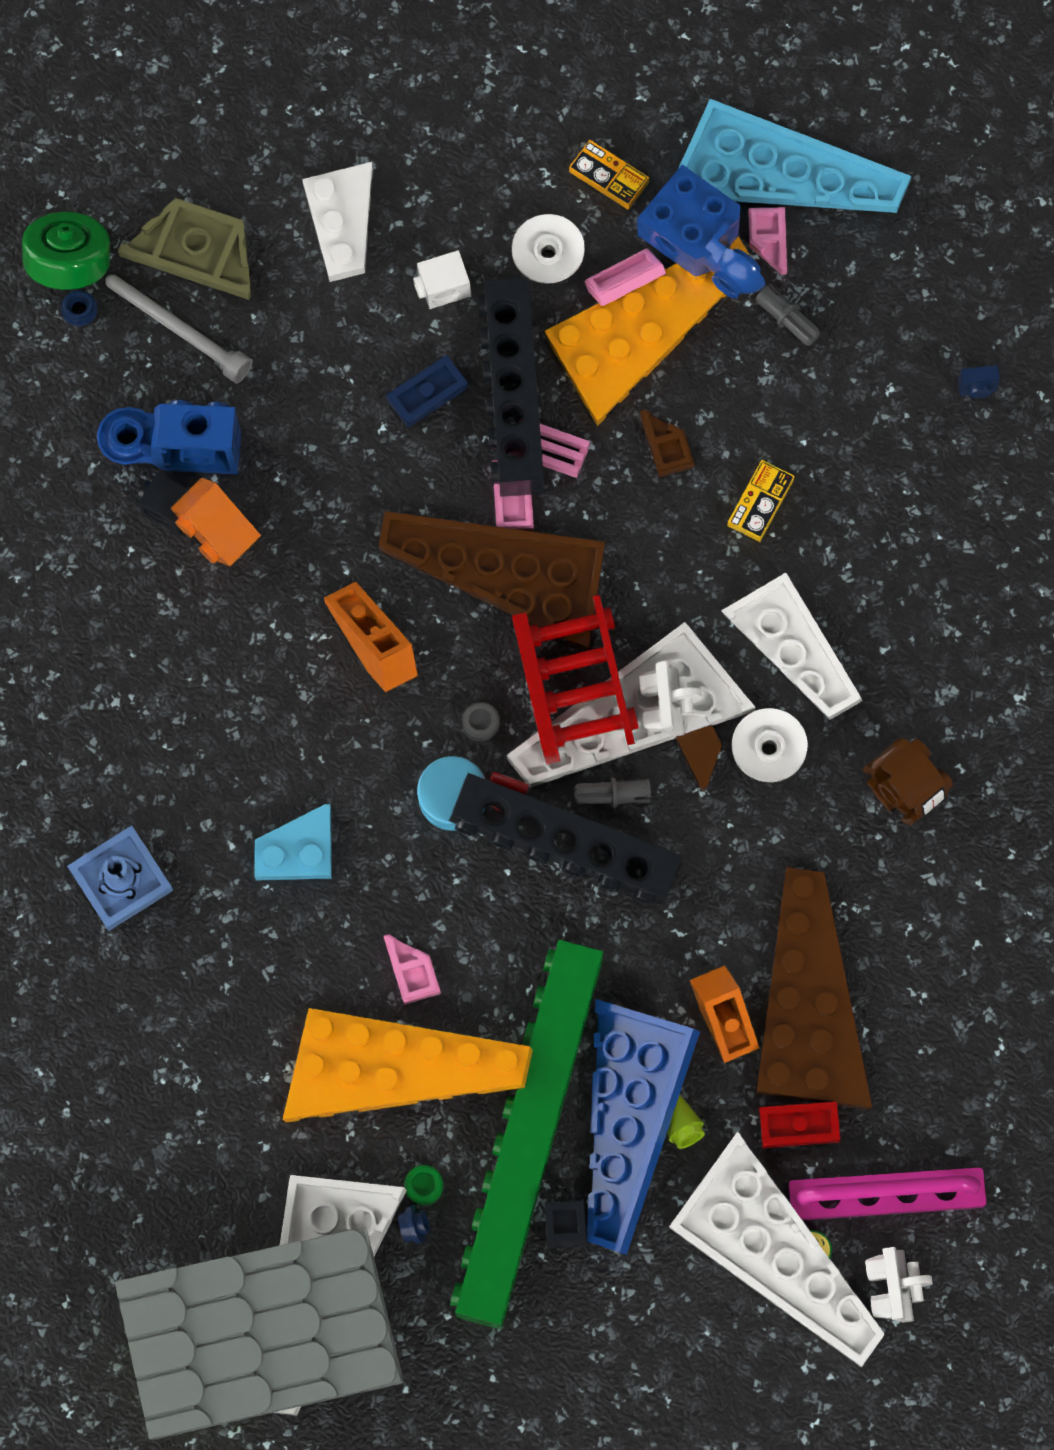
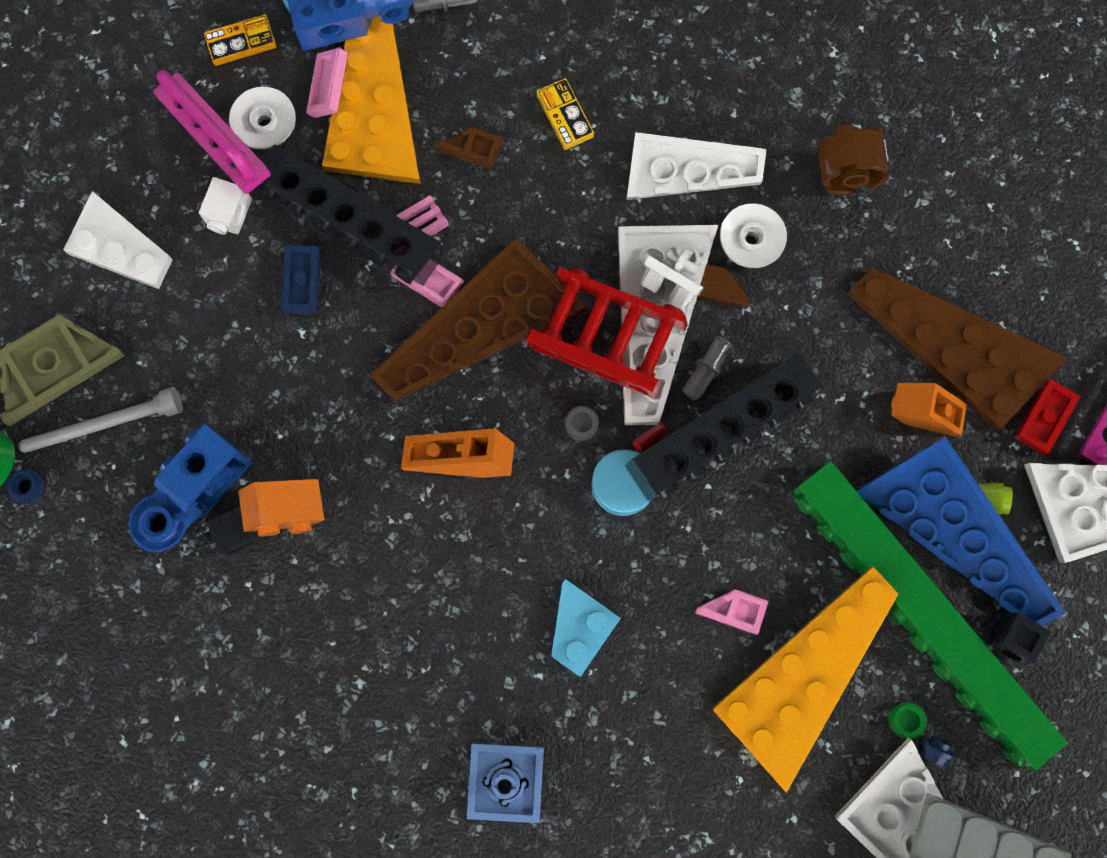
camera: 60 degrees left, 5 degrees up
(479, 273) = (249, 168): none -> dark pink piece

